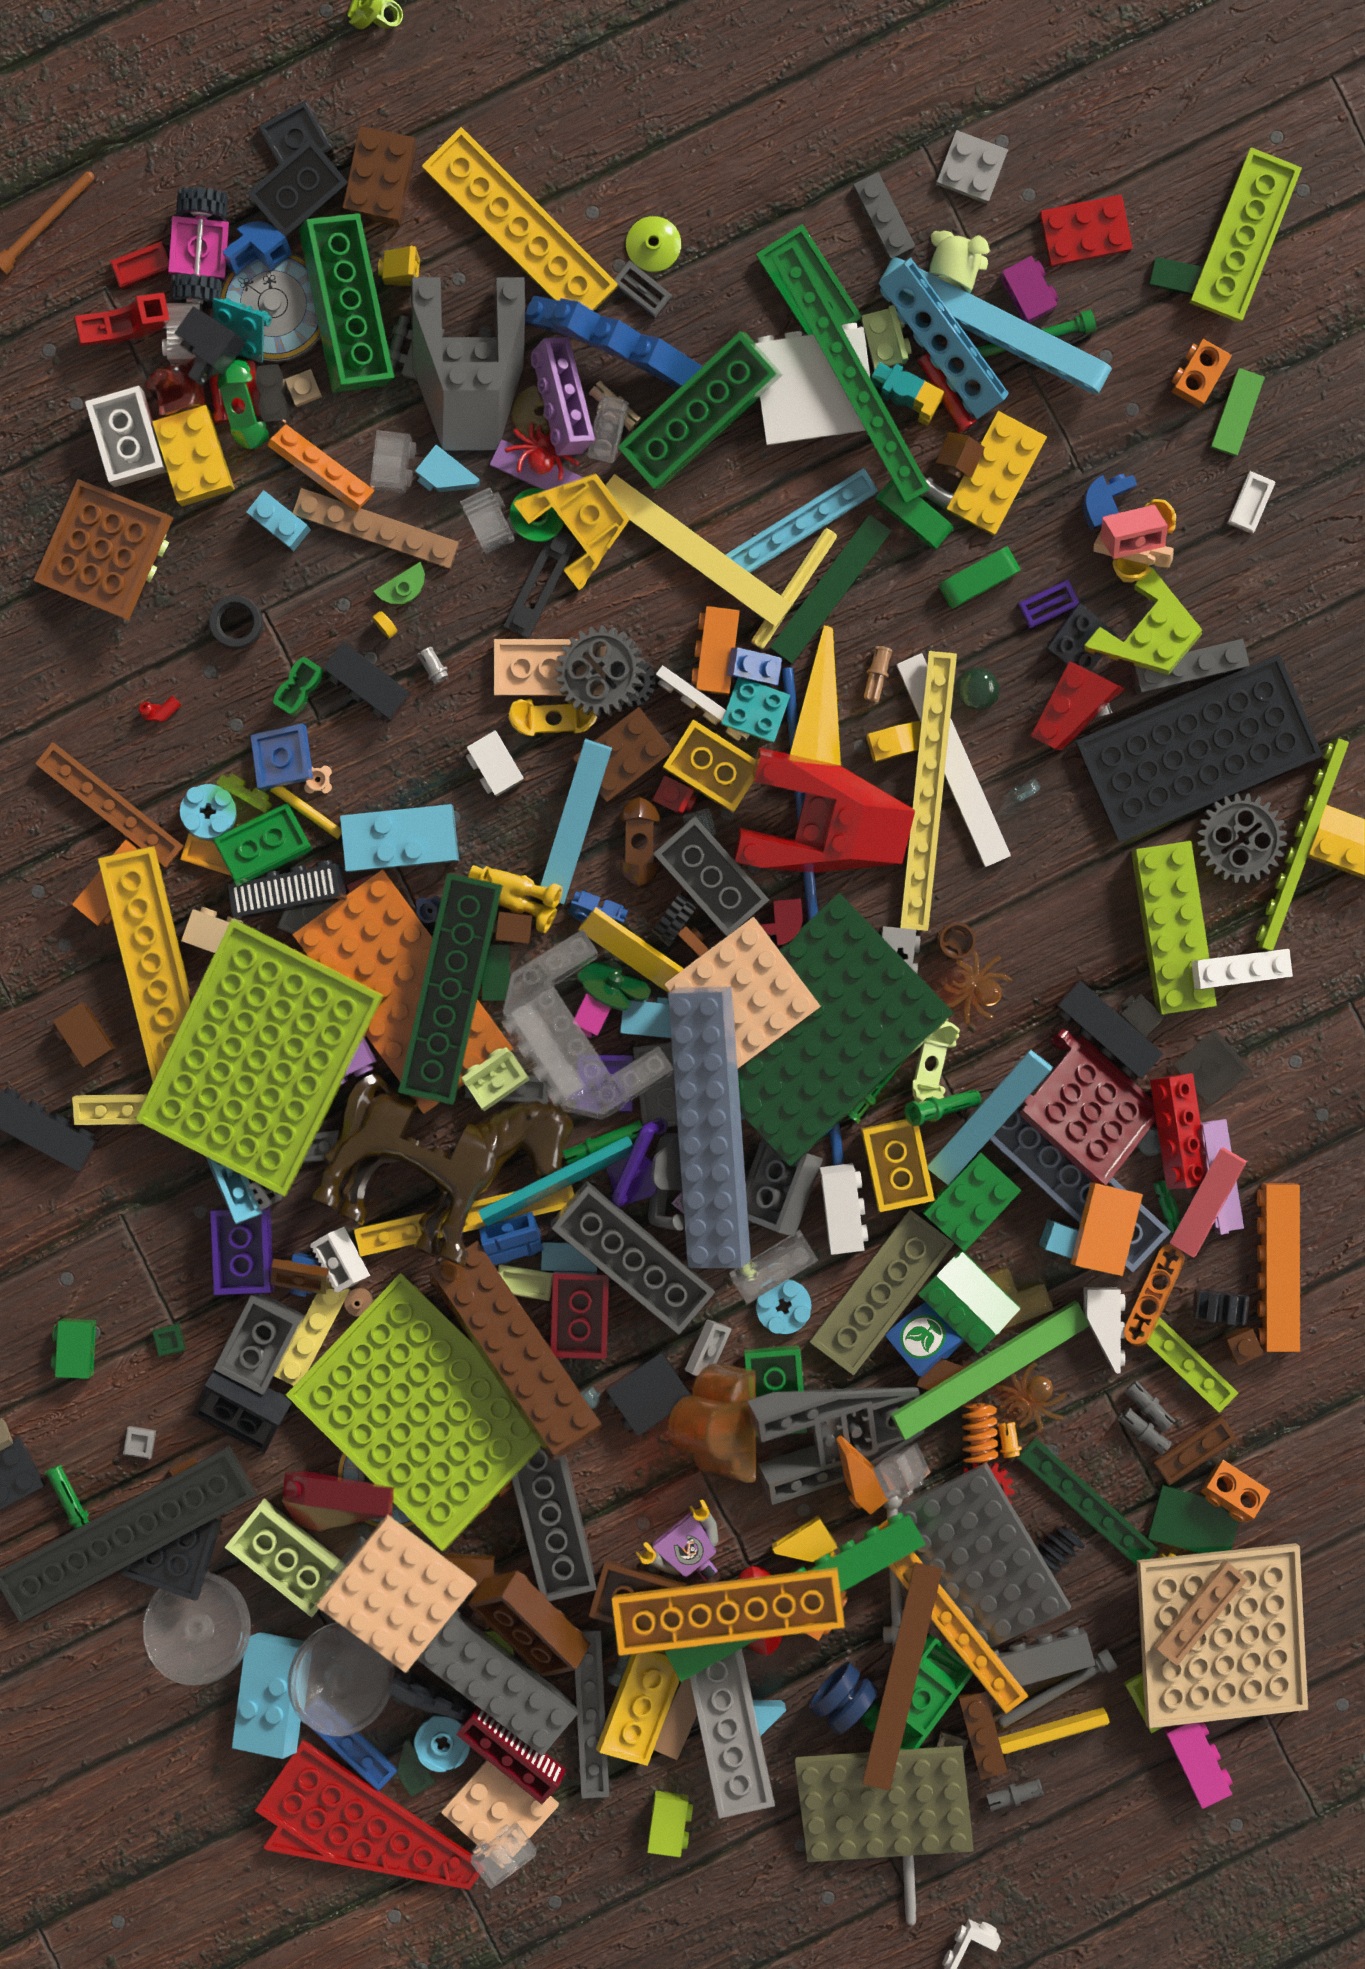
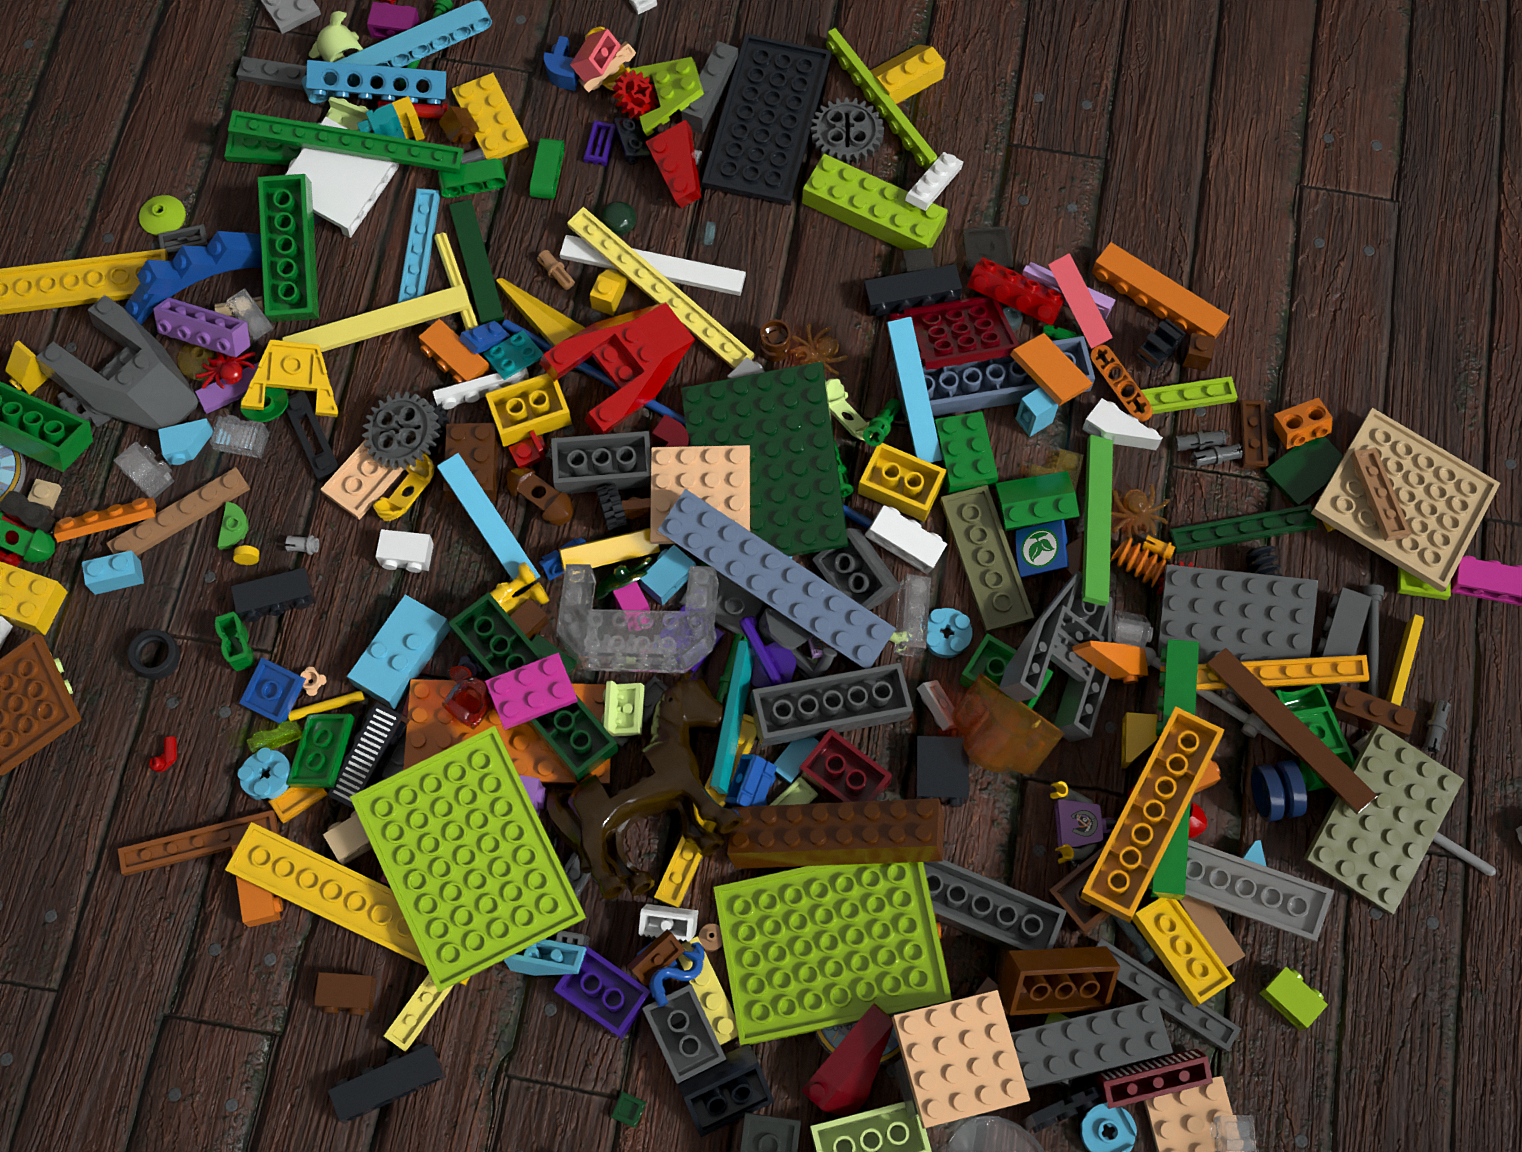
camera: 55 degrees left, 20 degrees down
(328, 1307) = (656, 981): none -> blue animal
(398, 945) = (469, 698): none -> clear red piece
(440, 996) = (531, 691): none -> dark pink plate
(1121, 604) = (635, 94): none -> red gear

